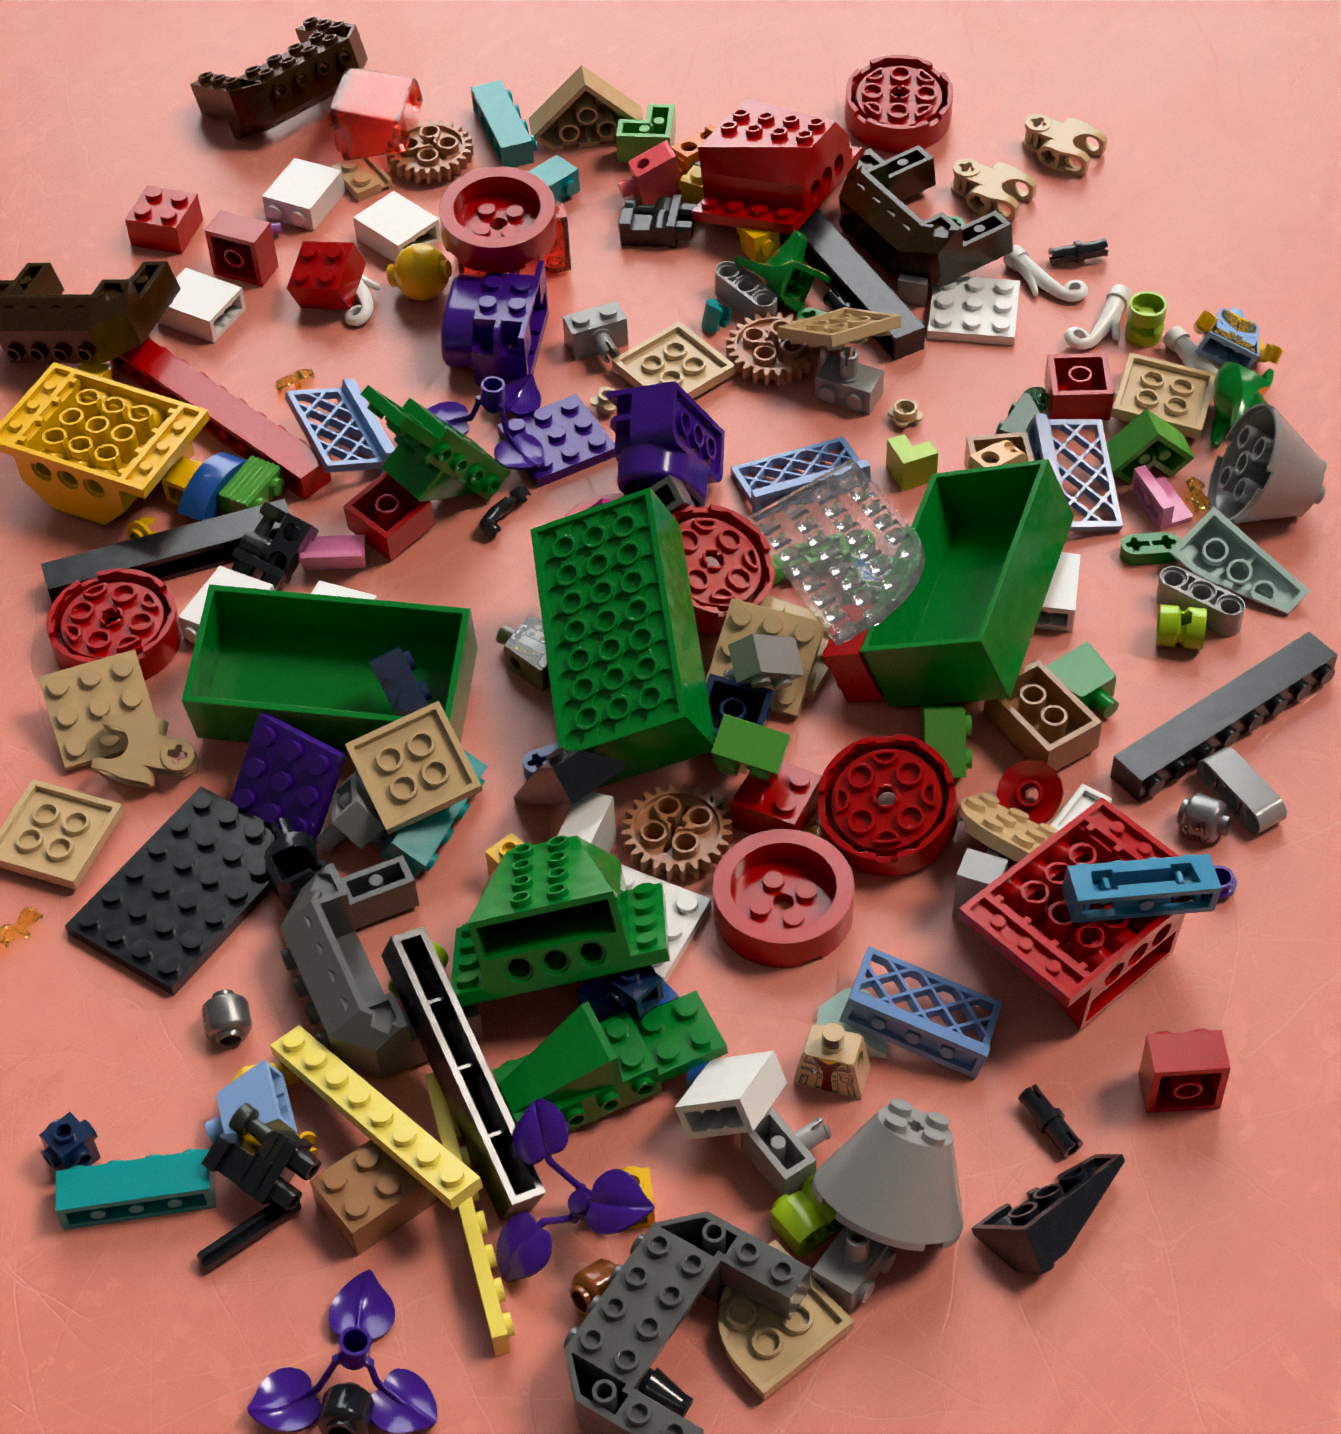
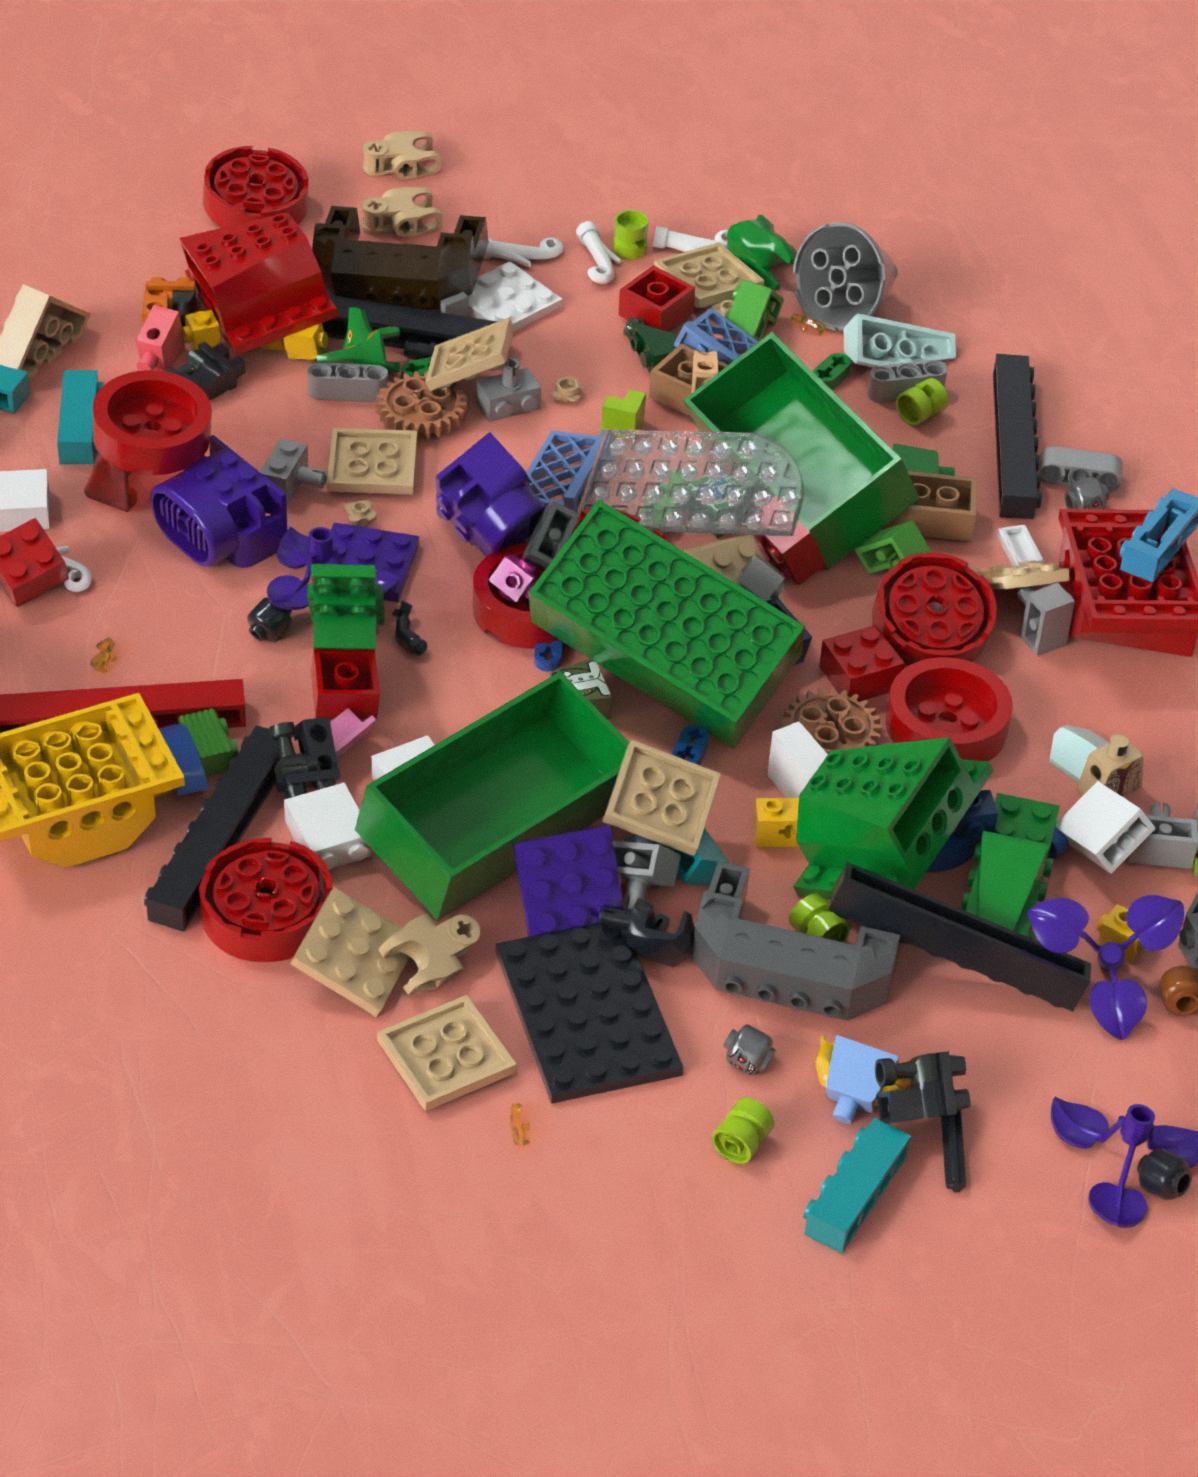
camera: 55 degrees left, 5 degrees down
(69, 1143) = (782, 1199): dark blue brick -> none
(125, 1070) = (743, 1130): none -> lime wheel
(140, 528) = (172, 829): yellow plate -> none
(362, 424) = (222, 645): medium blue fence -> none
(369, 1196) = (995, 1048): medium nougat brick -> none
(377, 1117) = (945, 1006): light yellow plate -> none
(399, 683) = (567, 758): dark blue brick -> none
(420, 272) = (93, 514): yellow brick -> none
(474, 1226) = (1053, 1019): light yellow plate -> none
(567, 777) = (757, 734): black wedge -> none
(638, 136) = (109, 318): bright green brick -> none
(715, 316) = (346, 410): teal piece -> none
(750, 747) = (832, 631): bright green brick -> none
(914, 1029) = (1131, 720): medium blue fence -> none
(1024, 777) = (991, 541): red dish -> none
(1078, 251) = (518, 220): black pin -> none
(1159, 499) = (800, 341): bright pink panel -> none
(1232, 339) = (702, 216): torso -> none

